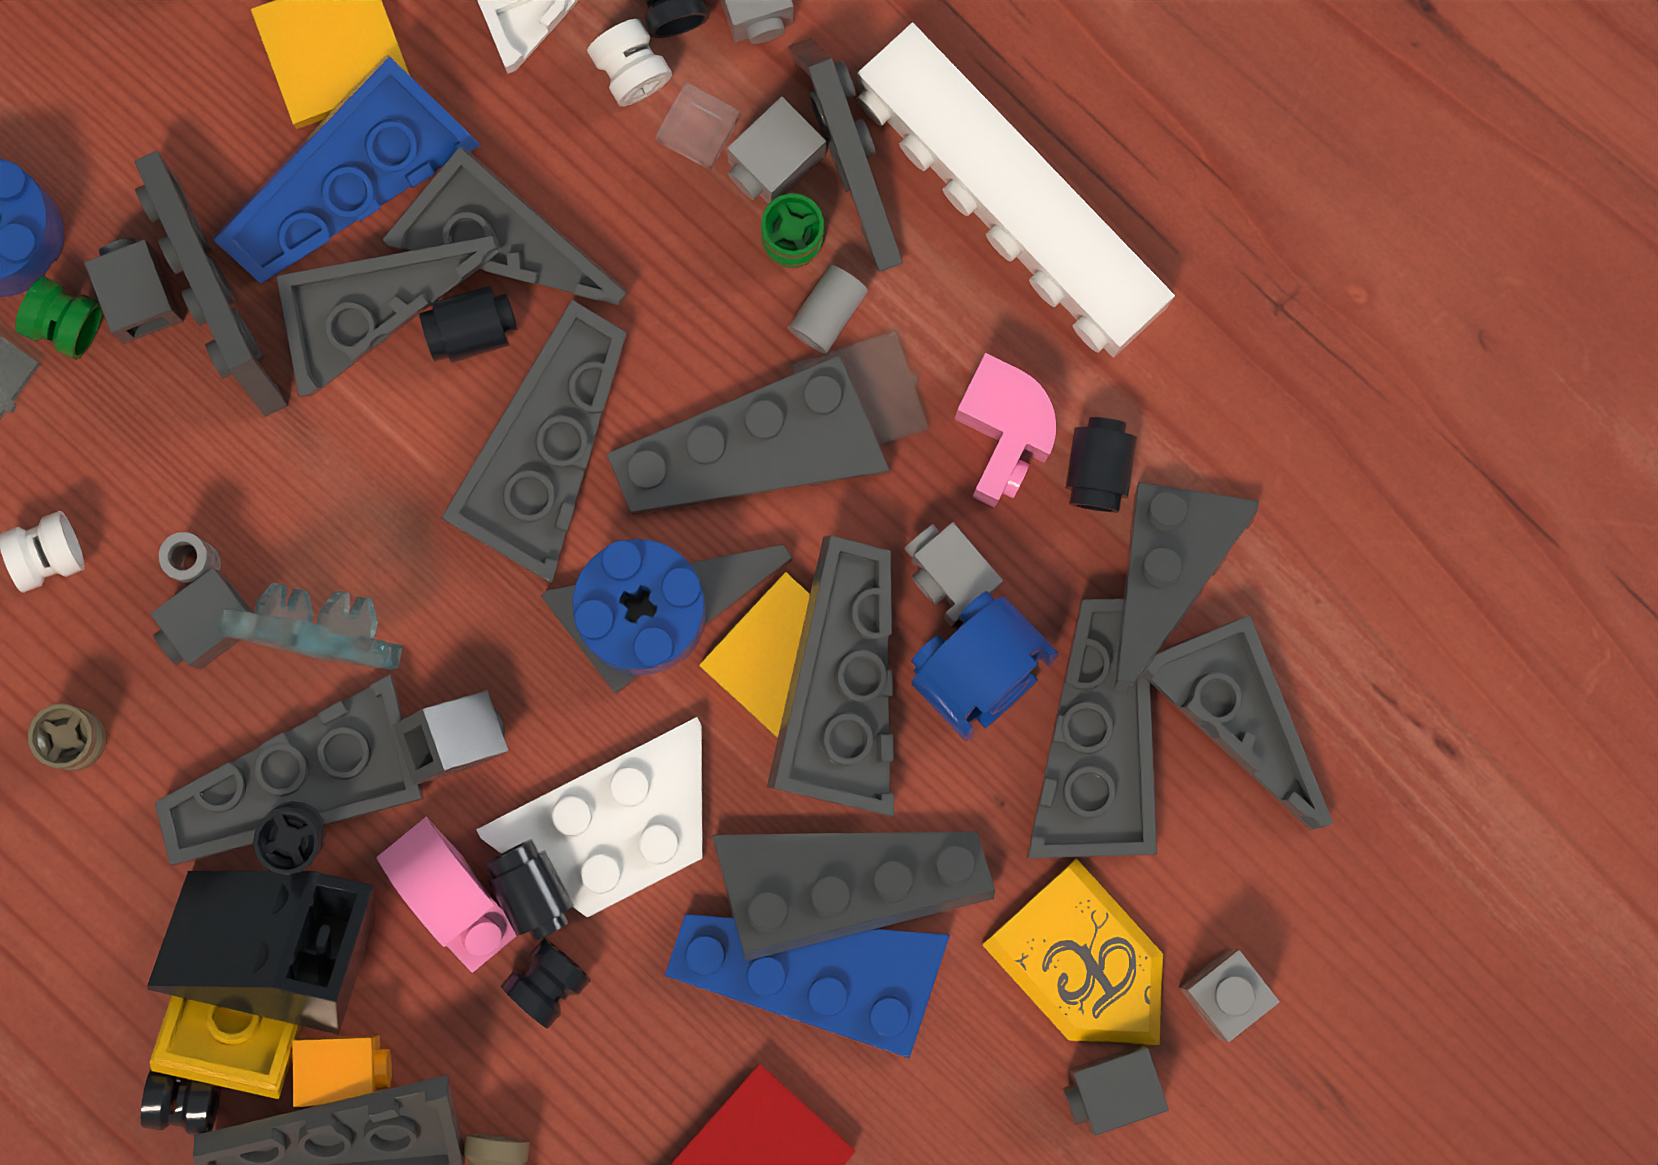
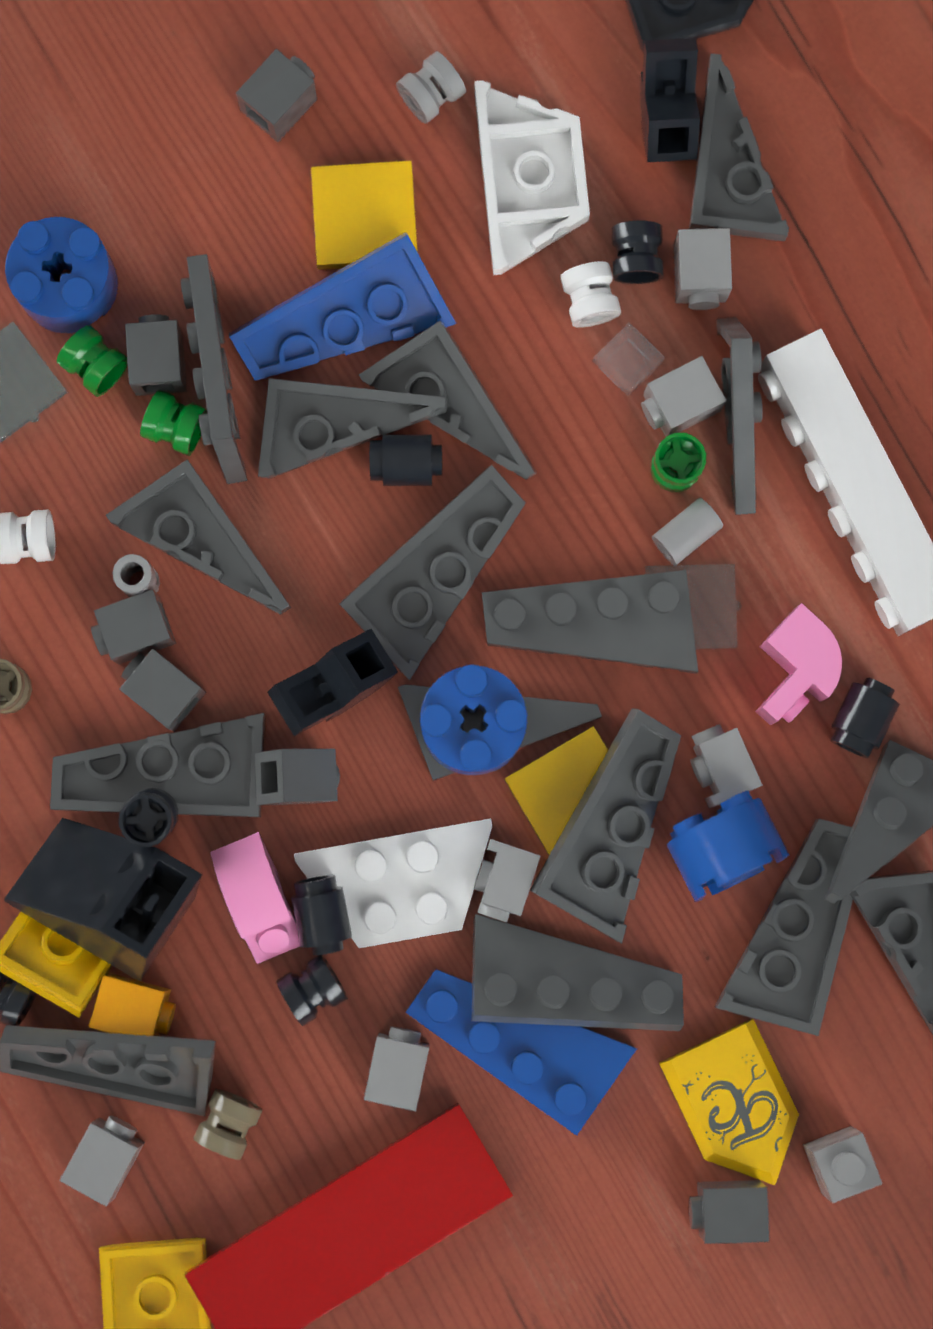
camera: 20 degrees right, 0 degrees up
(177, 363) = (172, 422): none -> green wheel
(235, 479) = (189, 525): none -> dark grey wing
(259, 682) = (160, 689): none -> dark grey brick
(334, 637) = (231, 672): clear light blue piece -> none
(464, 613) = (334, 683): none -> black brick
(674, 1044) = (397, 1069): none -> light grey brick
(735, 784) = (505, 880): none -> light grey brick

